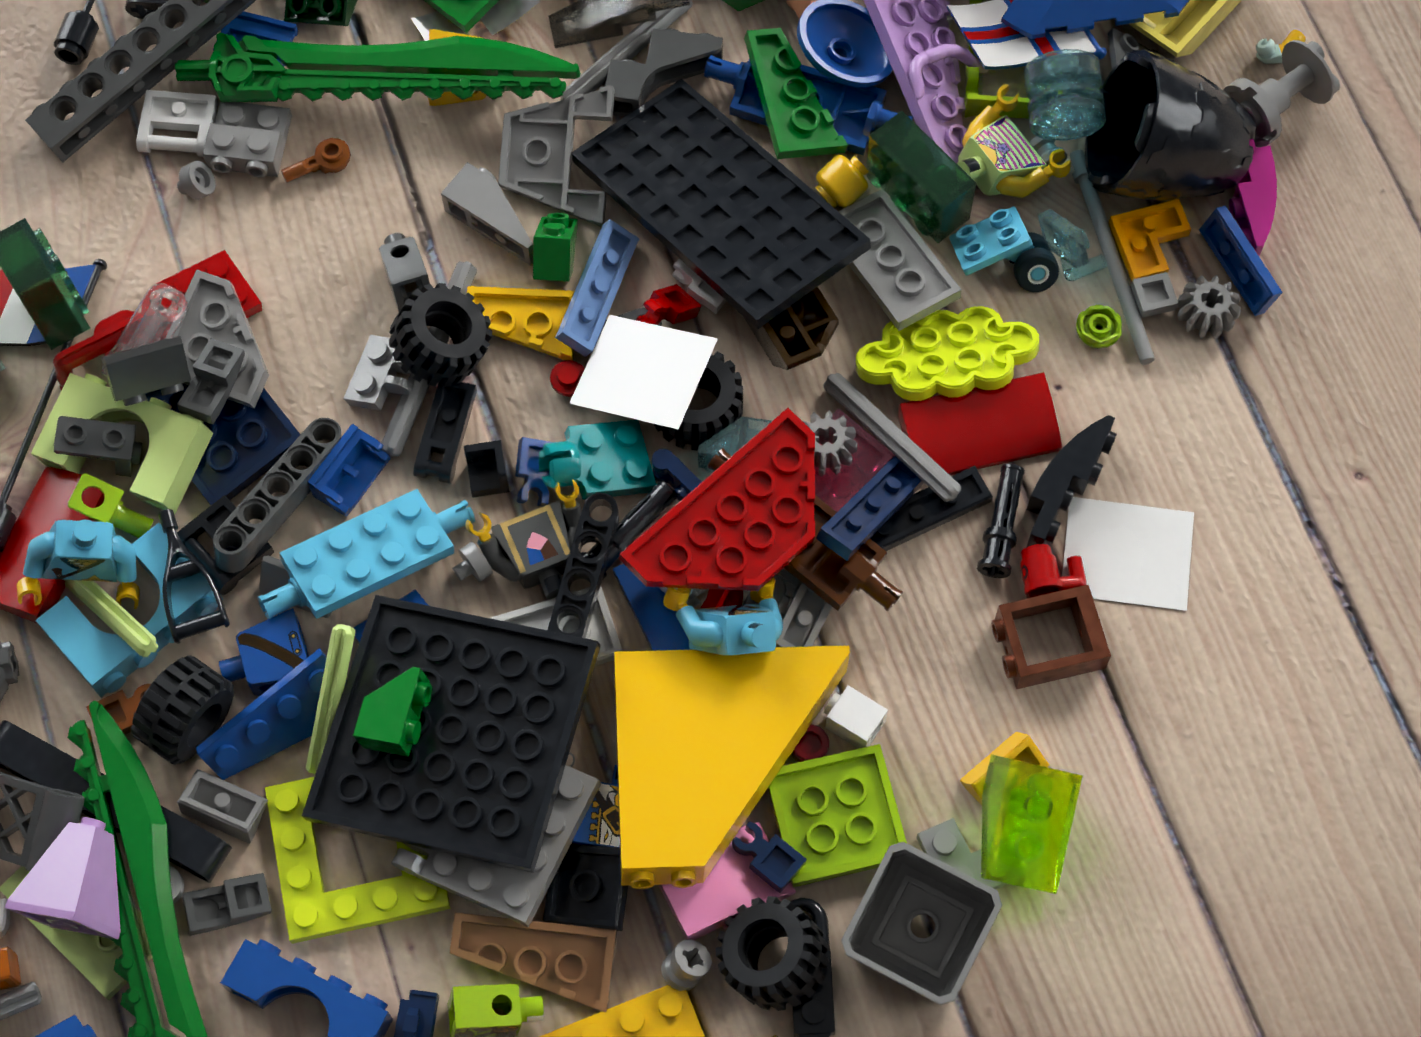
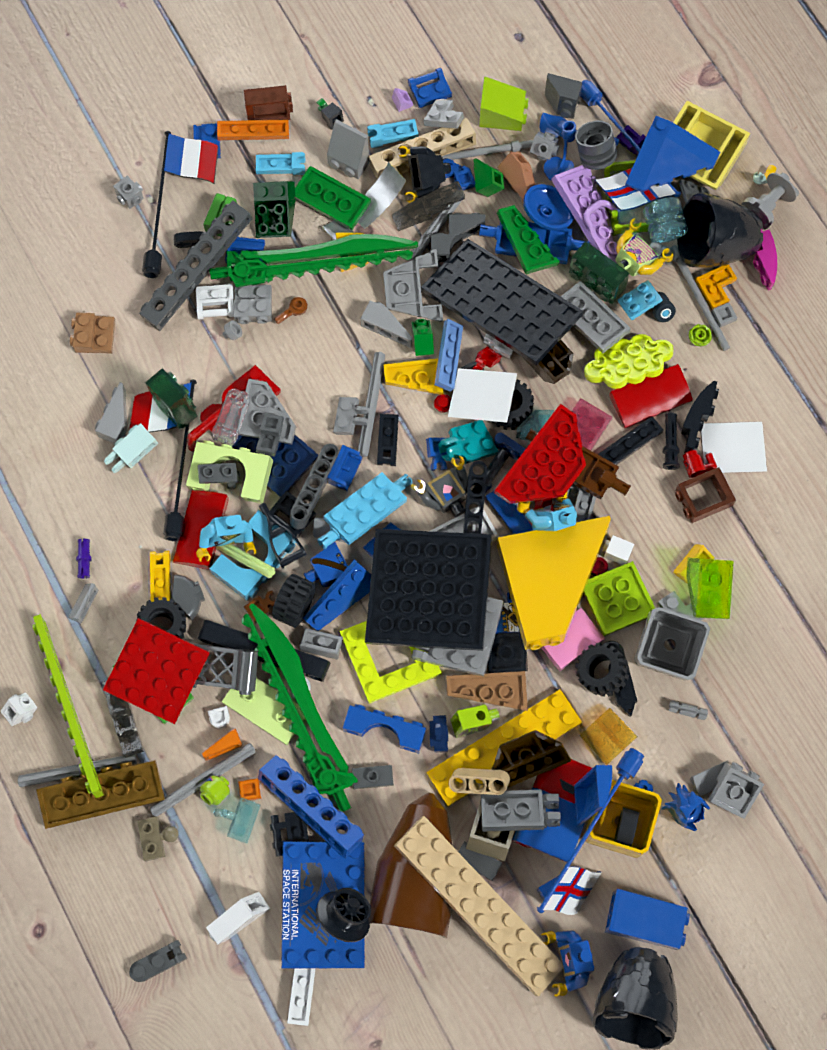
camera: 10 degrees left, 5 degrees up
(74, 883) = (263, 692): lavender slope -> none
(111, 509) = (234, 508): lime bracket -> none
(147, 369) = (238, 433): dark grey slope -> none
(227, 904) = (334, 690): dark grey slope -> none
(331, 691) = (365, 580): yellowish green axle -> none
(392, 714) = (399, 586): green slope -> none
(402, 266) = (352, 365): torso -> none
(455, 316) = (386, 384): black tyre -> none
(473, 563) = (417, 504): light grey tile -> none
(486, 468) = (413, 456): black panel -> none
(676, 968) = (561, 682): light grey wheel -> none
(773, 860) = (594, 625): dark blue plate -> none
(842, 181) = (559, 280): yellow head -> none
(842, 442) = (586, 415): light grey gear -> none
(869, 509) = (608, 445): dark blue plate -> none
(892, 437) = (609, 408): light grey axle -> none
(1070, 245) = (678, 295): clear light blue plate -> none
(1201, 294) = (759, 316): light grey gear -> none
(1240, 260) = (763, 290): blue tile -> none

